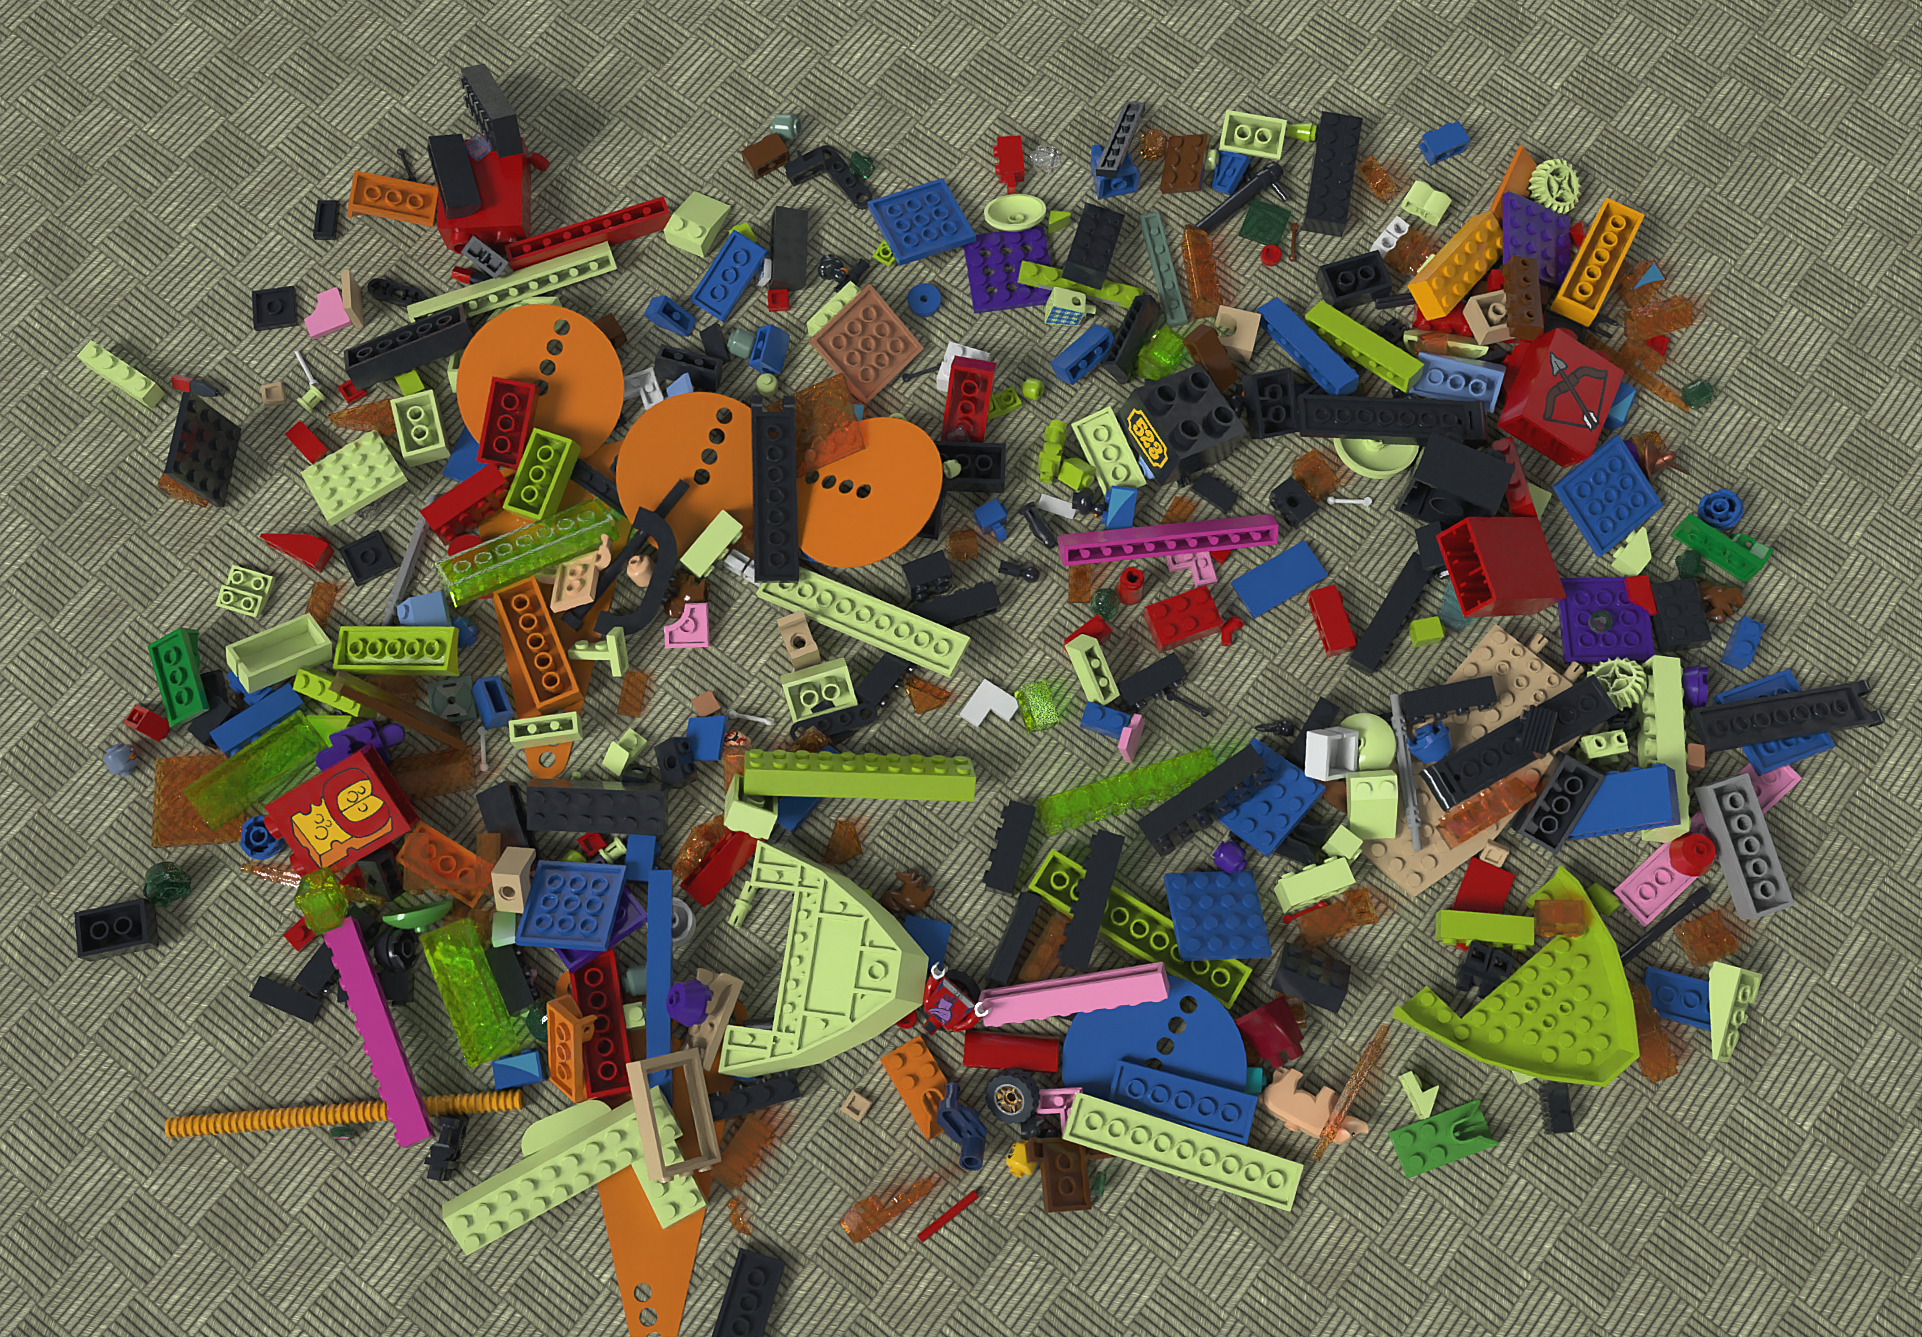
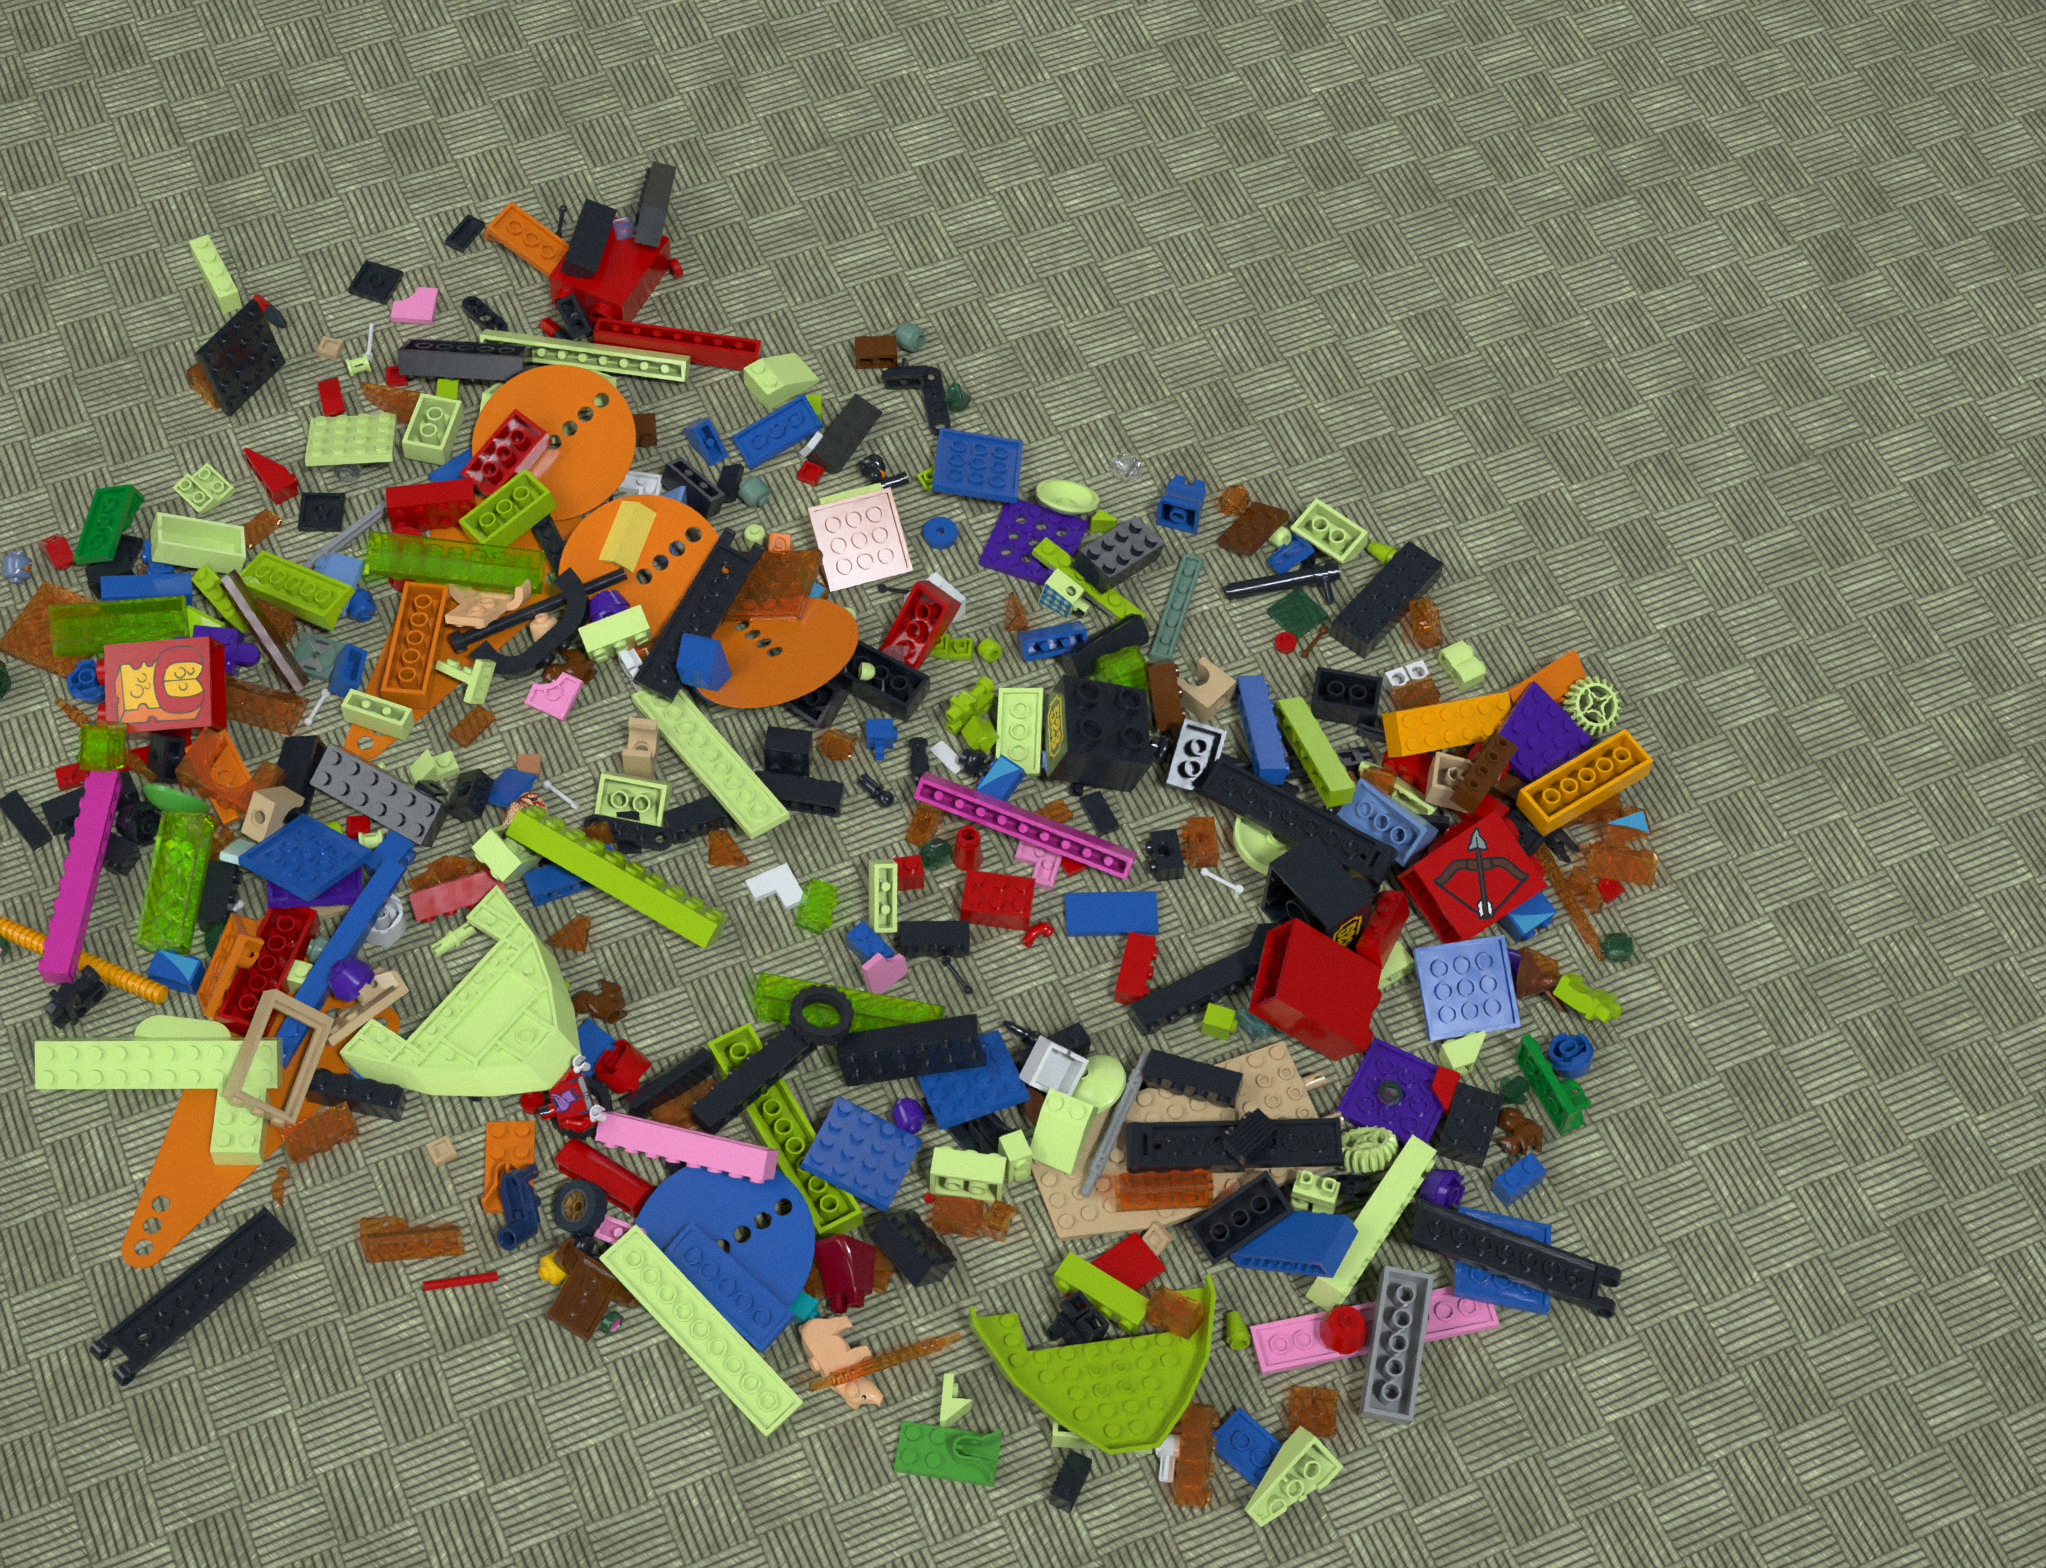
camera: 25 degrees right, 15 degrees down
(352, 298) = (443, 301): tan tile -> none
(667, 447) = (627, 535): none -> light yellow slope
(691, 524) = (606, 604): none -> dark purple cone
(769, 349) = (773, 507): blue brick -> none
(797, 382) = (780, 542): none -> orange bracket
(811, 536) = (702, 662): none -> blue slope
(968, 948) = (621, 1067): none -> red brick
(1010, 161) = (1093, 454): red hinge -> none
(1010, 848) = (714, 1011): black brick -> none
(1036, 347) = (1015, 616): none -> clear orange slope
(1120, 139) = (1201, 478): black plate -> none
(1128, 795) = (827, 996): none -> black tyre
(1200, 273) = (1206, 622): clear orange slope -> none
(1430, 742) = (1150, 1104): blue cone -> none
(1444, 143) = (1513, 623): blue brick -> none
(1692, 902) = (1321, 1378): black piece -> none
(1695, 757) = (1394, 1245): nougat slope -> none
(1705, 454) = (1593, 1002): none -> lime hips

